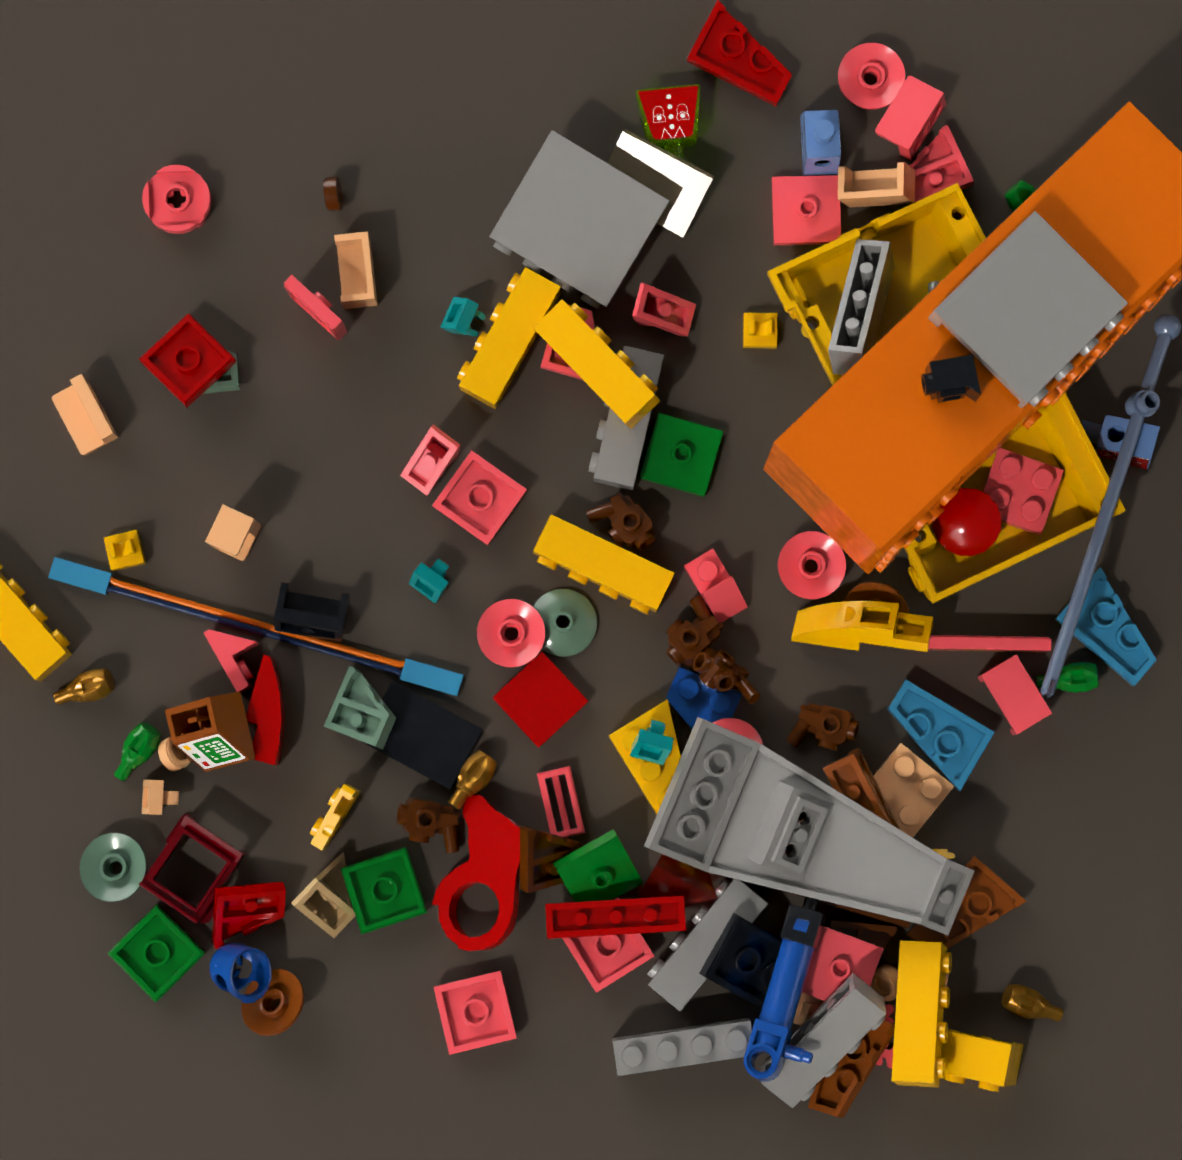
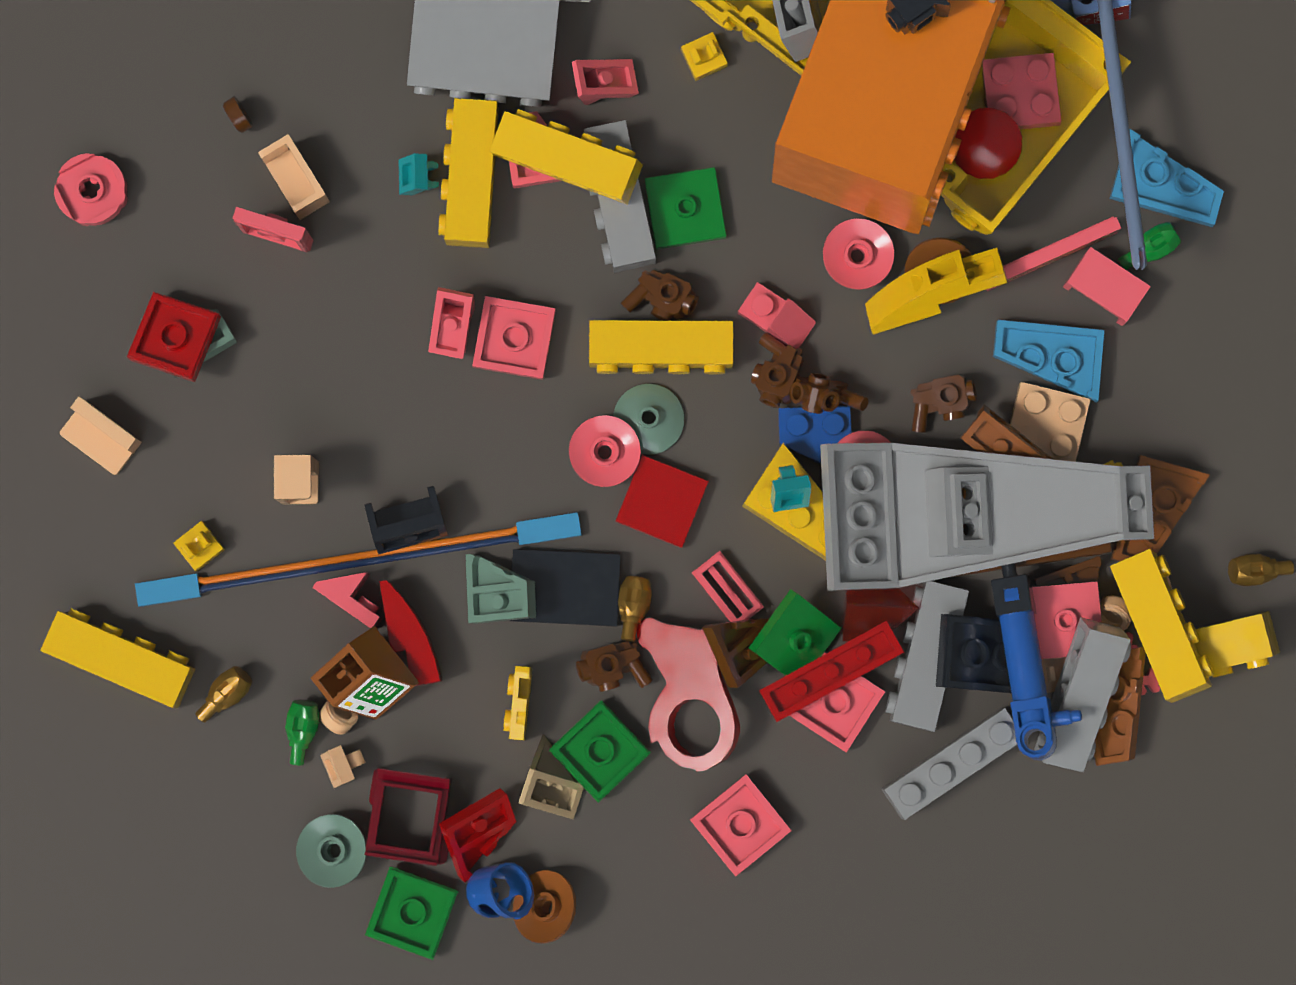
camera: 25 degrees left, 0 degrees up
(430, 580) = (504, 438): teal tile -> none

